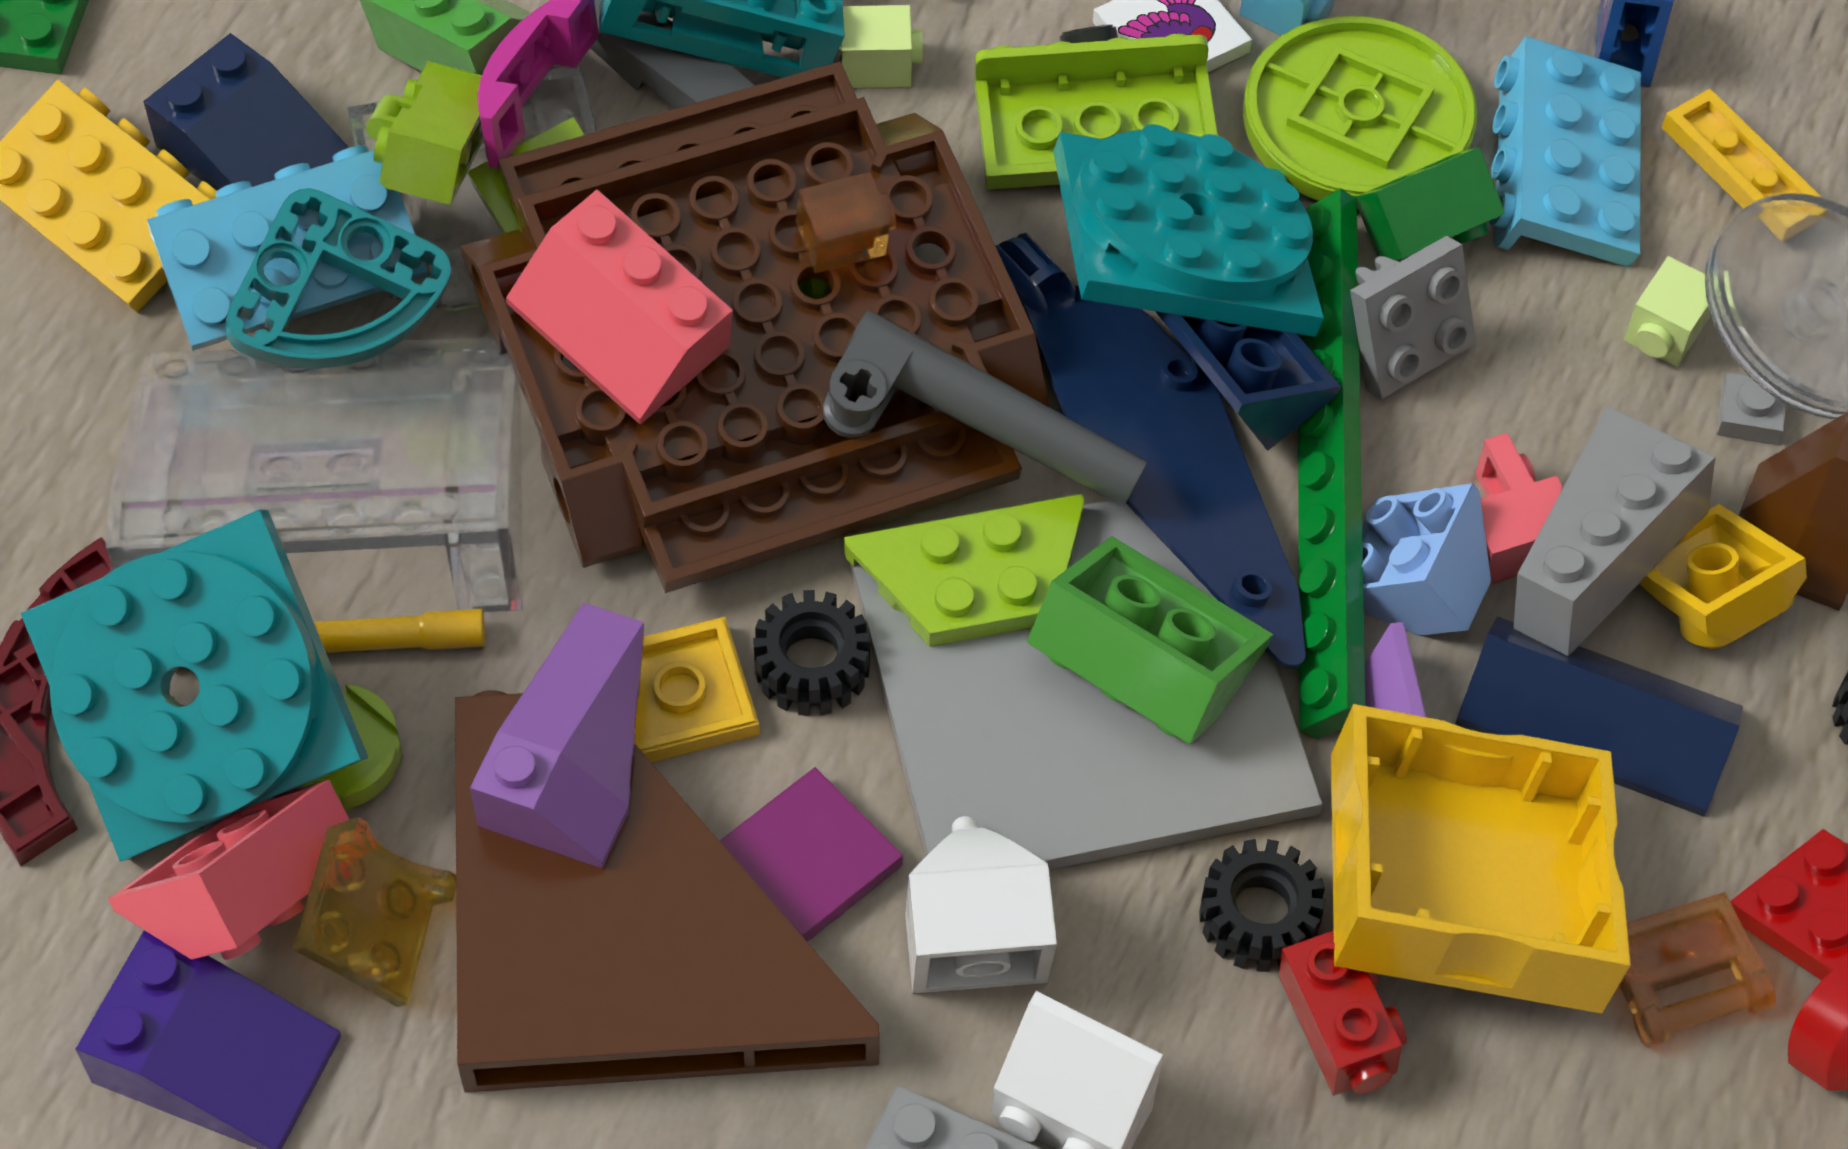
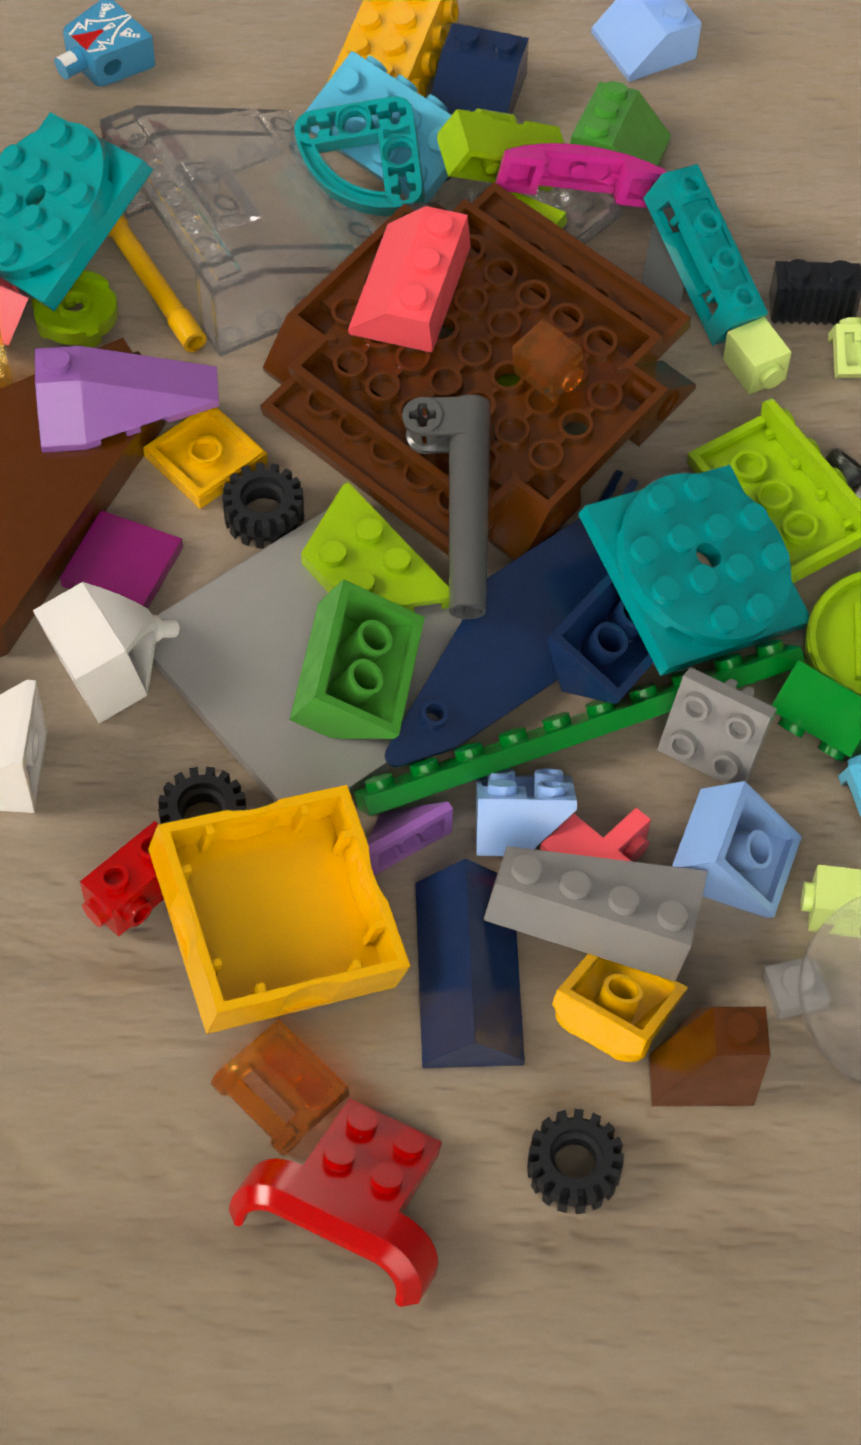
camera: 65 degrees right, 0 degrees up
(1558, 378) = (740, 846): none -> light blue slope

